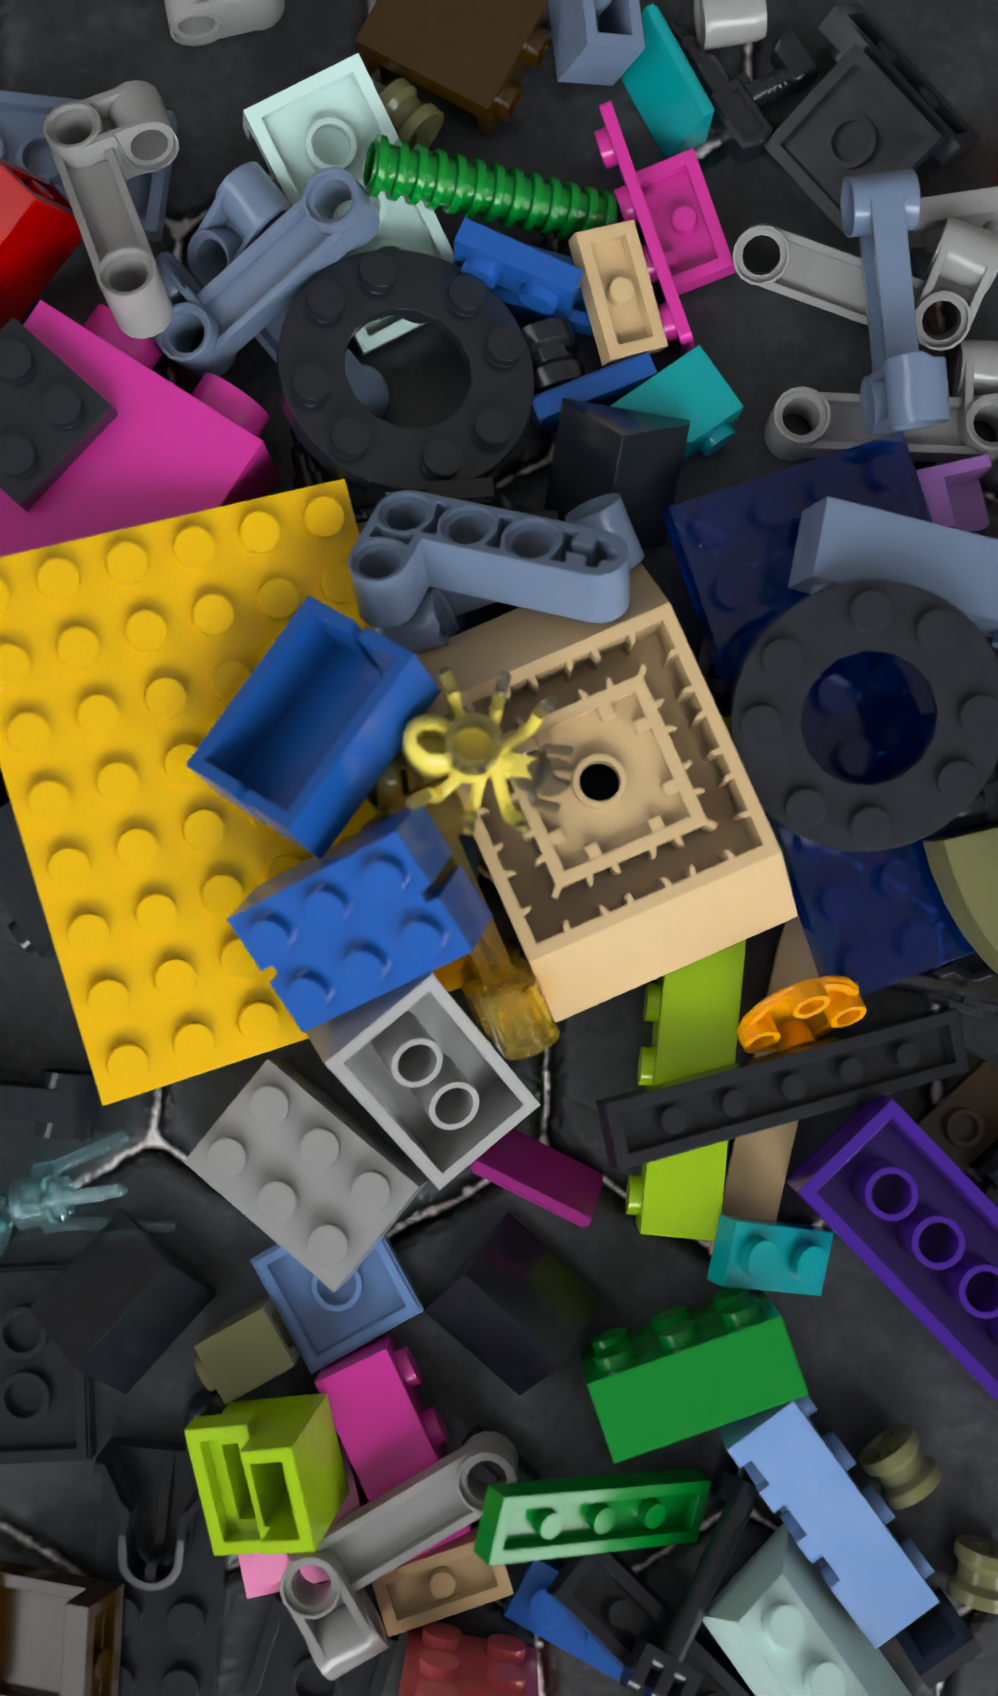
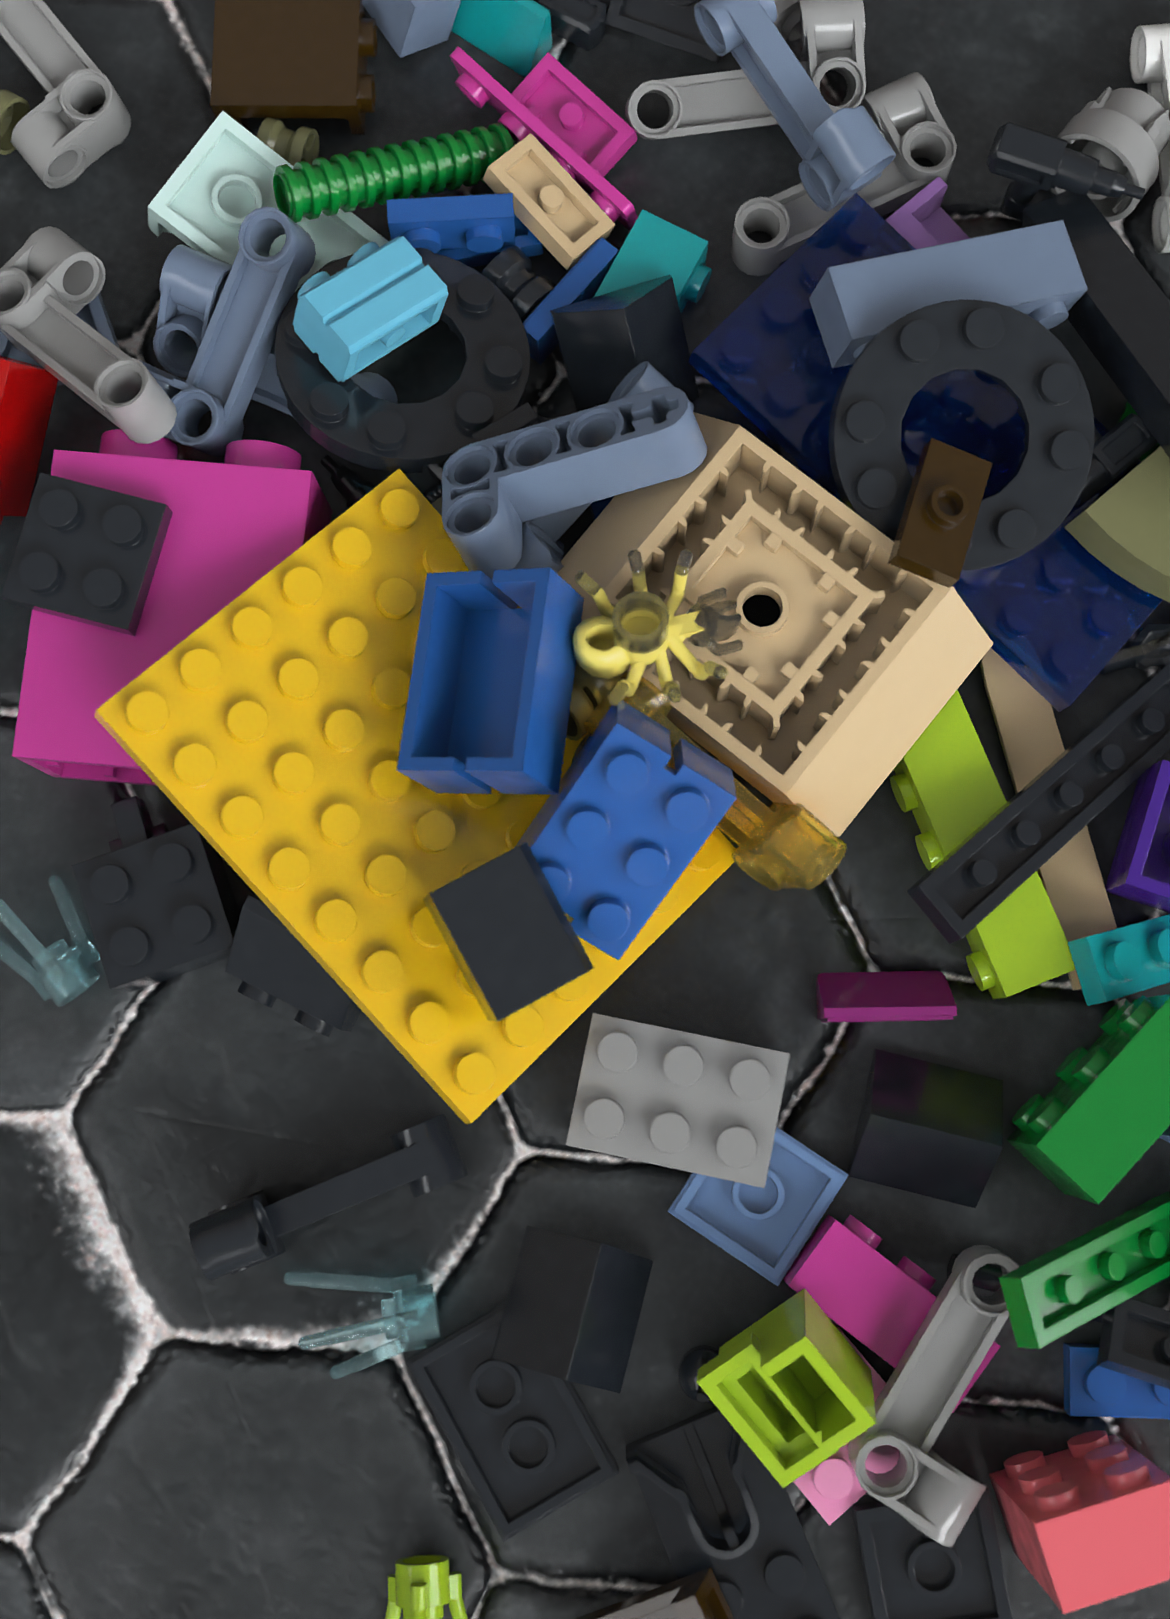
camera: 20 degrees left, 5 degrees down
(48, 1199) = (455, 1252): clear light blue plant -> none
(209, 963) = (508, 933): none -> black slope
(245, 1351) = (708, 1294): olive brick -> none
(392, 312) = (368, 306): none -> medium azure brick
(425, 1075) = (742, 950): light grey brick -> none
(439, 1585) = (999, 1411): tan plate -> none
(800, 1014) = (1042, 728): light orange dish -> none
(805, 779) = (940, 513): none -> dark brown plate

